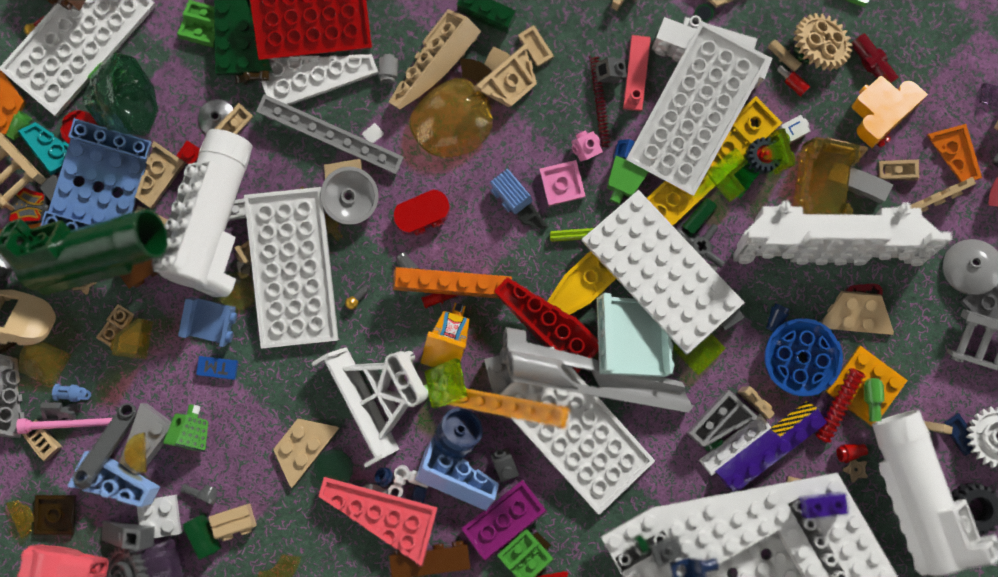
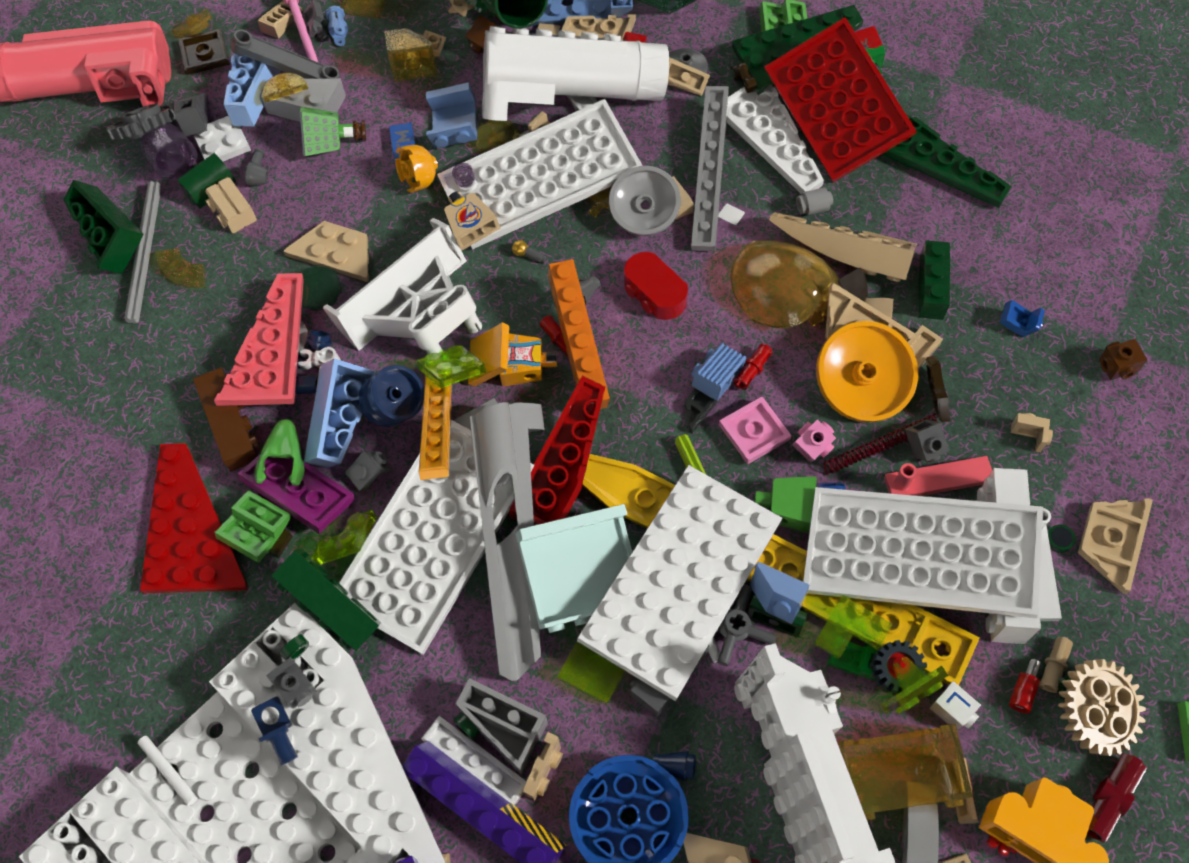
camera: 75 degrees right, 20 degrees down
(193, 399) = (360, 130): none -> reddish brown bush
(250, 362) = (416, 163): none -> light orange cylinder
(279, 328) = (463, 168): none -> clear purple bush
(318, 335) = (469, 219): none -> tan torso
(471, 522) = (282, 443): none -> bright green animal
(511, 165) = (753, 366): none -> red pin
(546, 89) = (867, 371): none -> light orange dish
(562, 492) = (347, 542): none -> clear neon green plate
(565, 44) = (937, 387): none -> dark brown tile
(604, 517) = (325, 599): none -> dark green wedge
(692, 212) = (778, 592): none -> medium blue slope

